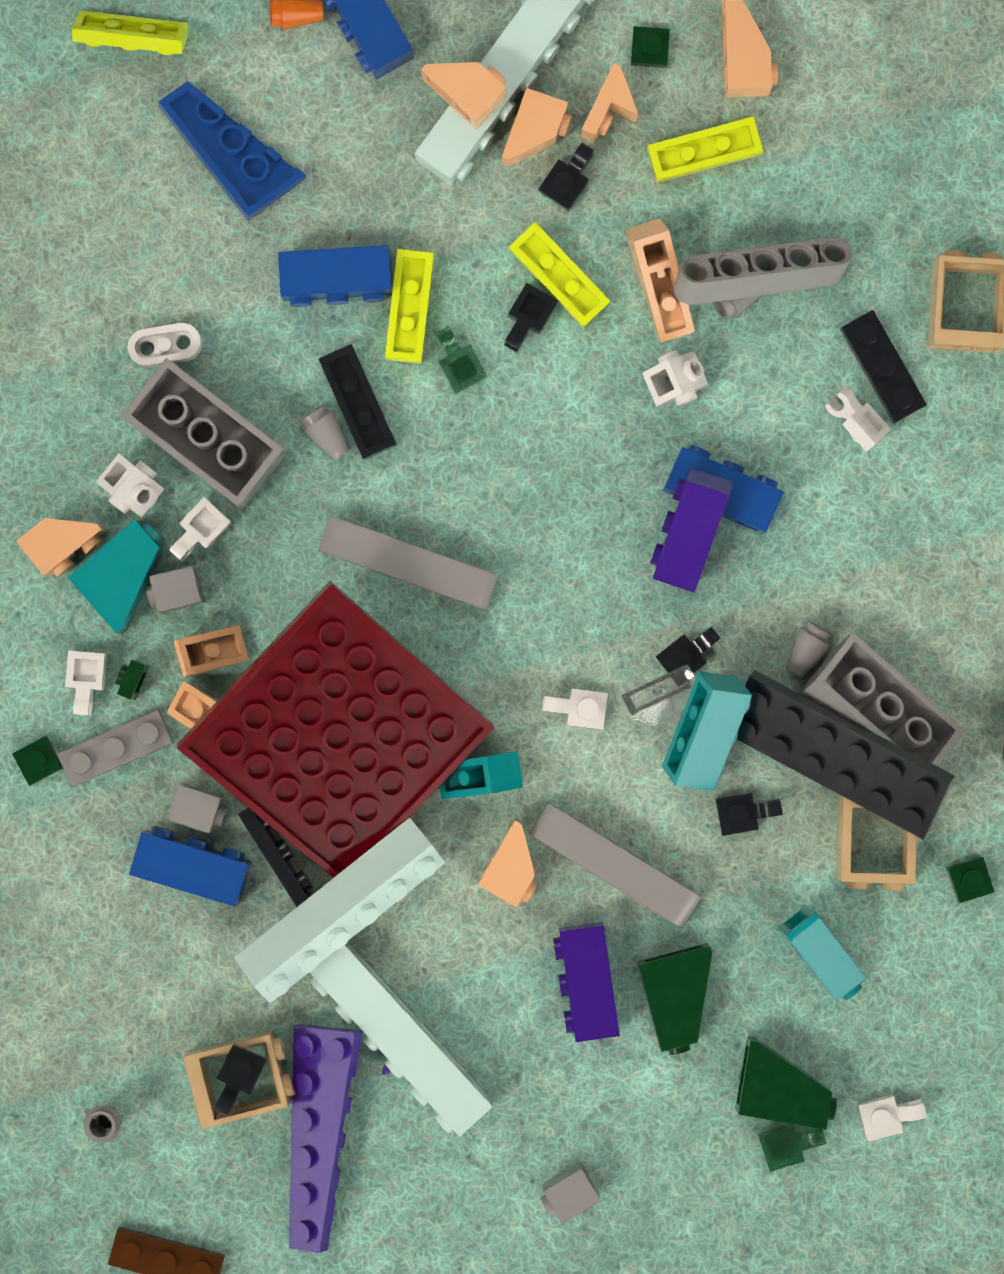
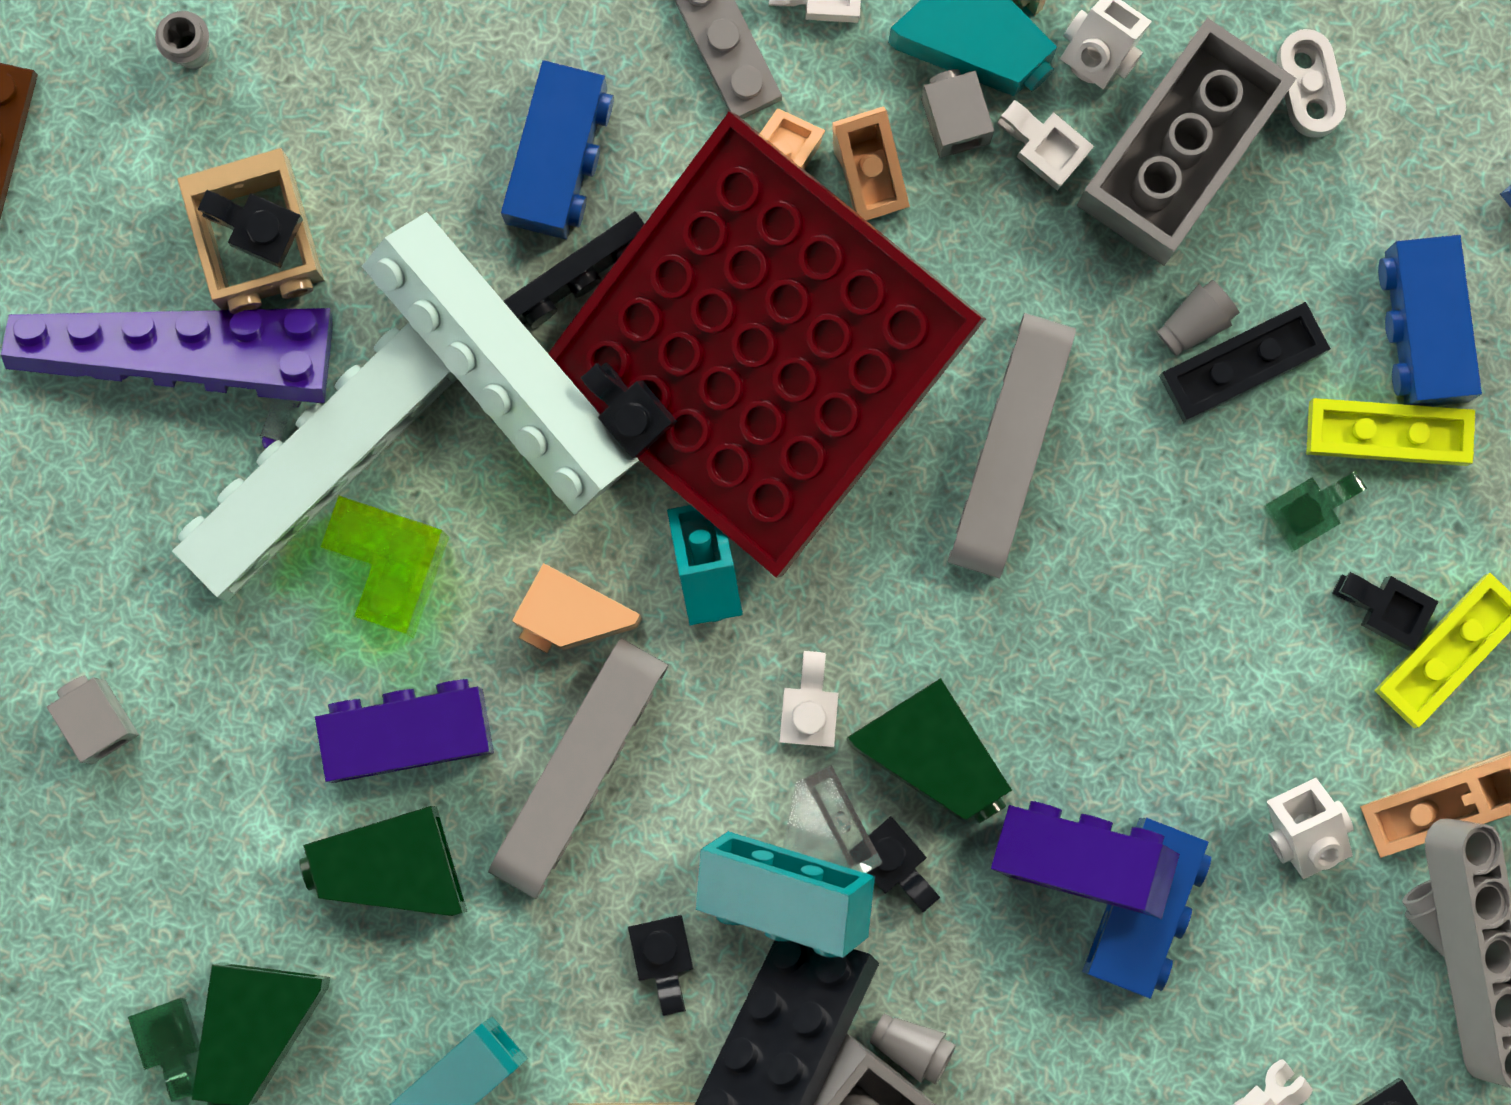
camera: 85 degrees right, 5 degrees down
(131, 679) = (824, 56): dark green plate -> none
(197, 808) = (640, 156): light grey brick -> none
(379, 820) = (633, 413): none -> black plate
(469, 981) = (401, 559): none -> clear neon green brick
(615, 625) = (935, 753): none -> dark green slope

